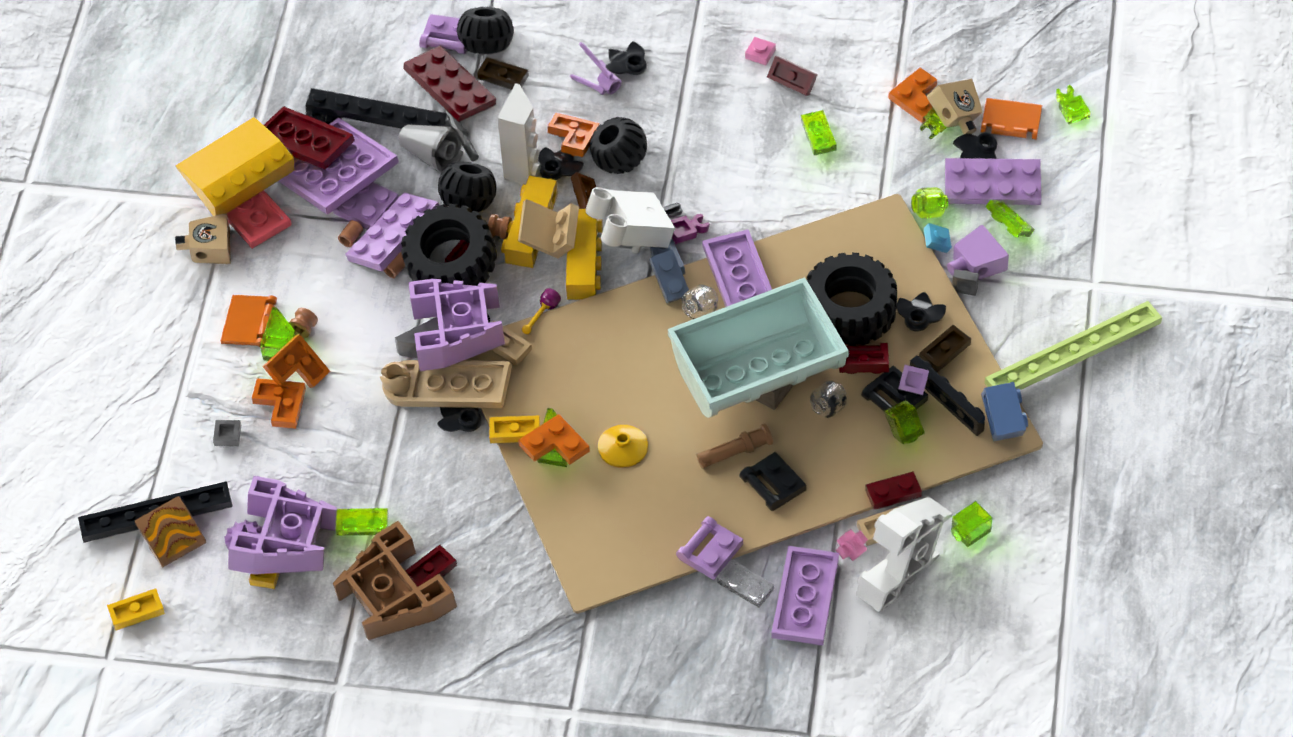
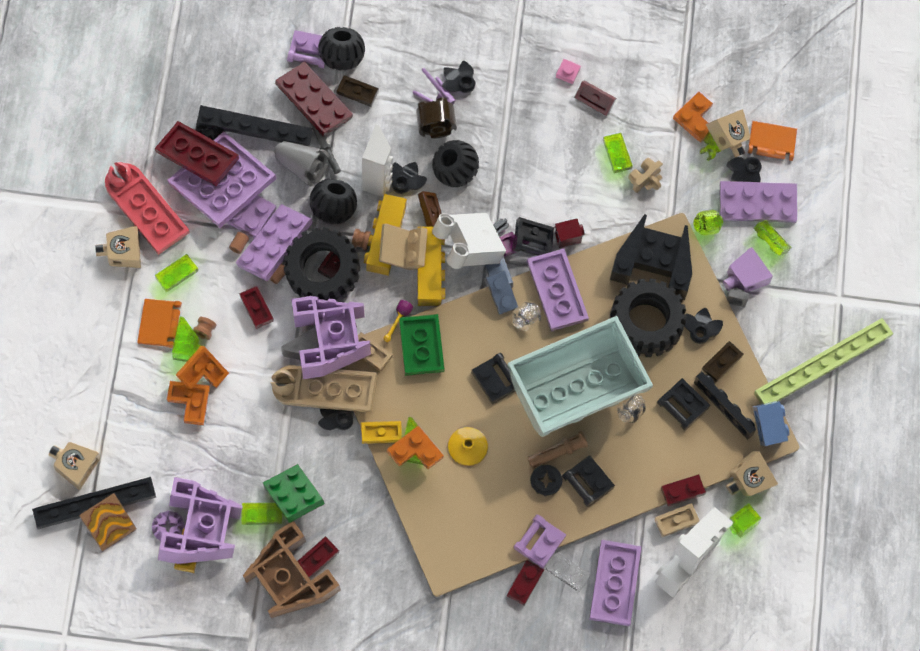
camera: 10 degrees left, 15 degrees up
(134, 468) = (74, 463): none -> tan torso
(135, 609) = (84, 592): yellow plate -> none
(227, 433) = (148, 430): flat silver plate -> none
(236, 167) = (142, 182): yellow slope -> none
(272, 266) = (176, 273): none -> clear neon green plate
(368, 300) = (256, 307): none -> dark red plate
(401, 495) = (293, 493): none -> green plate
(568, 335) = (421, 344): none -> green plate
(576, 133) = (421, 148): orange plate -> none
(595, 96) = (436, 118): none -> dark brown brick
(654, 375) = (490, 381): none -> black plate
(691, 597) = (525, 582): none -> dark red plate
(711, 215) = (535, 233): none -> black plate
(711, 474) = (553, 475): none -> black gear
(756, 216) = (568, 233): none -> dark red brick
(851, 545) = (651, 539): bright pink gear -> none
(856, 157) = (652, 169): none -> tan hips
(861, 231) = (656, 254): none -> black wedge
(866, 359) = (662, 370): dark red plate -> none
(904, 422) = (692, 432): clear neon green brick -> none
(913, 379) = (699, 395): lavender plate -> none
(937, 238) = (714, 255): medium azure plate -> none
(980, 473) = (751, 476): none -> tan torso
(1071, 107) = (821, 131): clear neon green plate -> none

